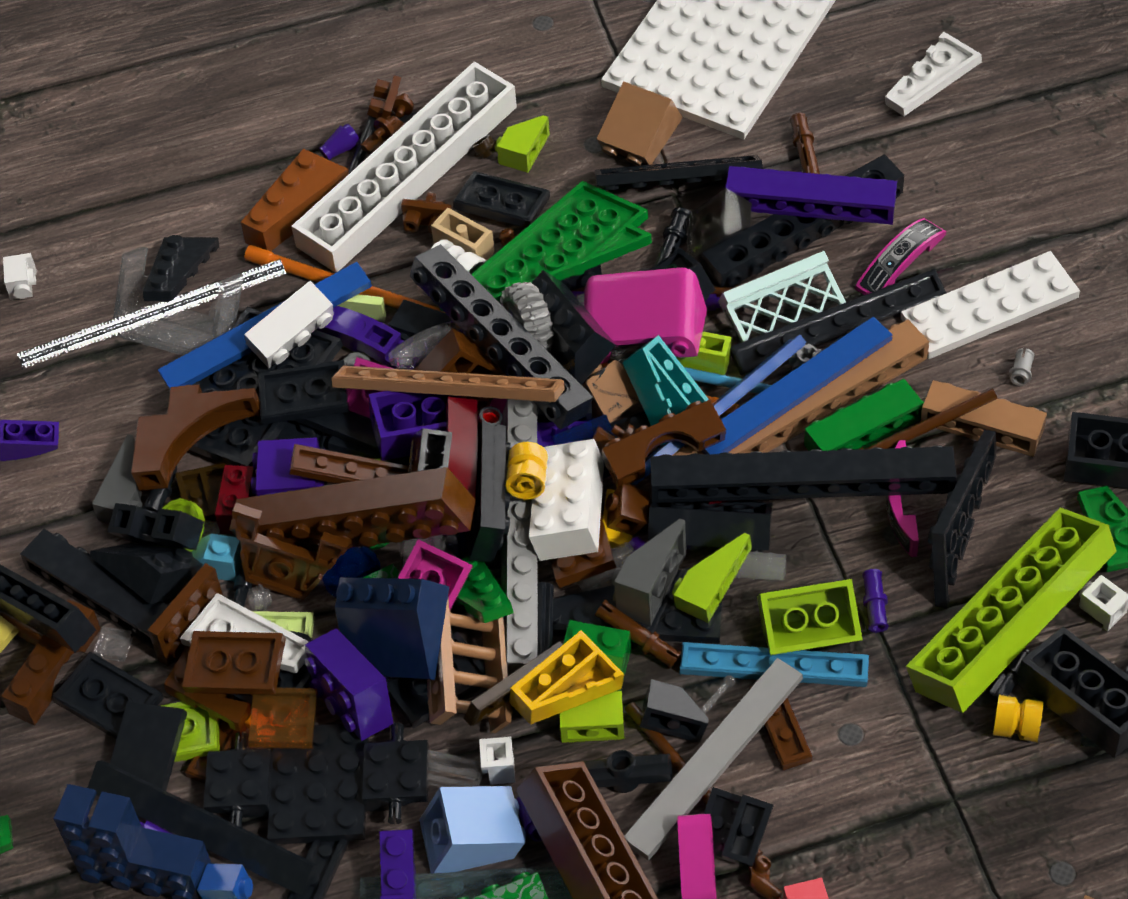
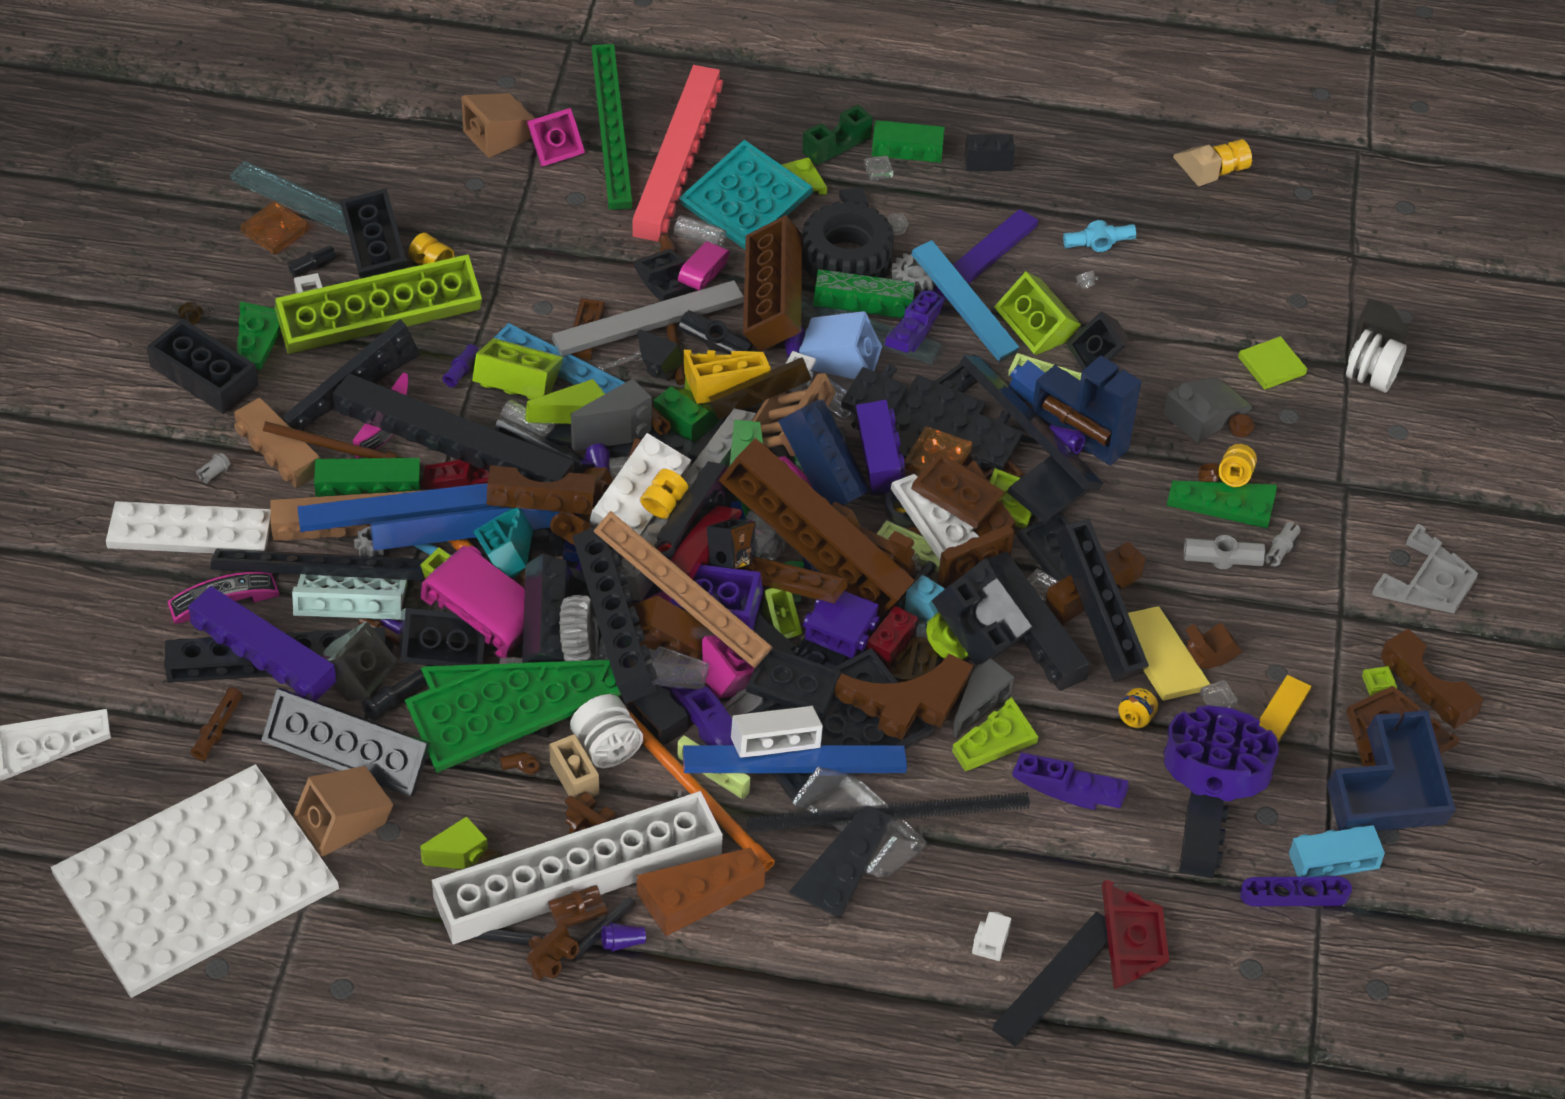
camera: 160 degrees left, 5 degrees down
(91, 455) = (995, 738): none -> lime wing
(501, 199) = (512, 803): black tile -> none

